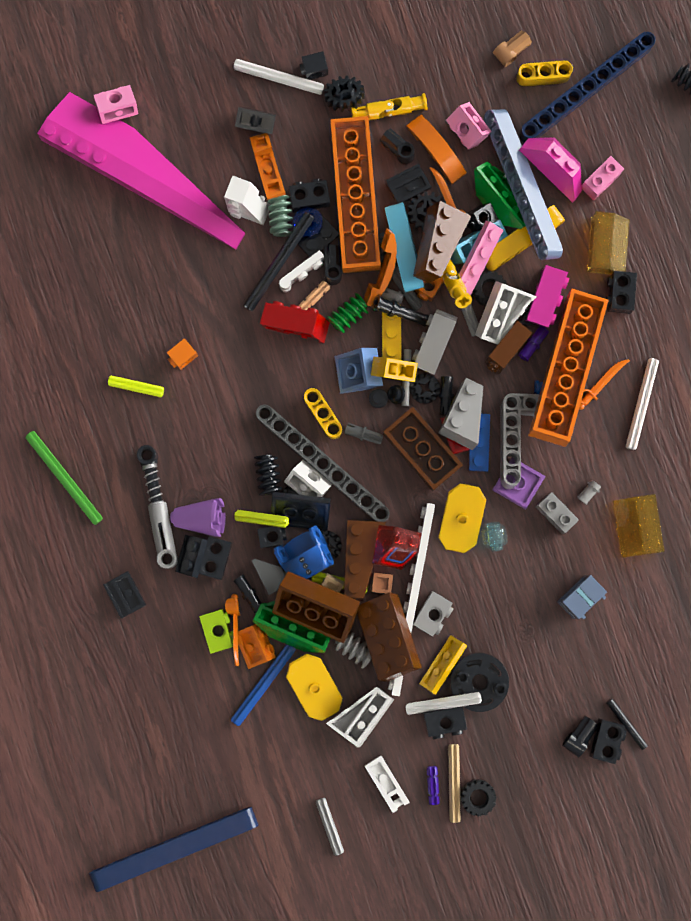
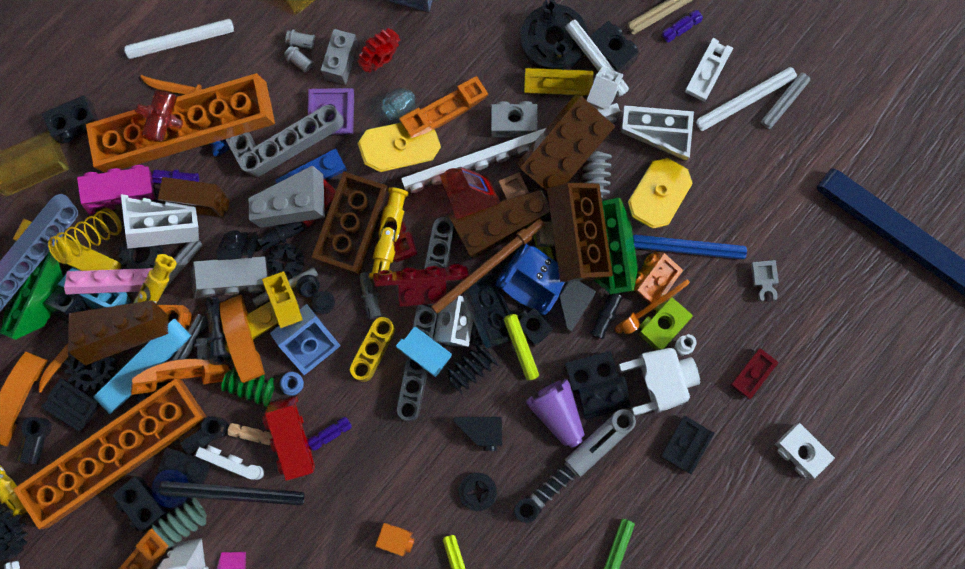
camera: 110 degrees left, 5 degrees down
(60, 679) = (817, 458): none -> white brick
(145, 673) = (754, 373): none -> dark red plate
(177, 421) = (471, 501): none -> black gear
(177, 604) = (664, 378): none -> white piece
(189, 638) = (685, 345): none -> white pin
(209, 726) = (765, 275): none -> light grey plate
(220, 457) = (483, 431): none -> black slope
(282, 364) = (329, 433): none -> dark purple axle
(297, 447) = (424, 351): none -> medium azure panel
(331, 338) = (285, 380): none -> medium blue plate
(337, 565) = (523, 237): none -> dark orange bar
(346, 472) = (421, 285): none -> dark red bracket
(348, 798) = (746, 98): none -> white axle
(384, 324) = (239, 339): none -> orange slope
(387, 478) = (404, 246): none -> dark red plate
(388, 462) = (393, 212): none -> yellow piece
(414, 692) = (604, 88): none -> white brick
(453, 359) = (236, 245): none -> black plate
(472, 567) = (445, 109): none -> orange slope
(520, 238) = (60, 259): none -> yellow piece
(543, 544) = (378, 50): none -> red gear
(574, 482) = (297, 58): none -> light grey pin
(576, 353) = (159, 116): none -> clear red pin

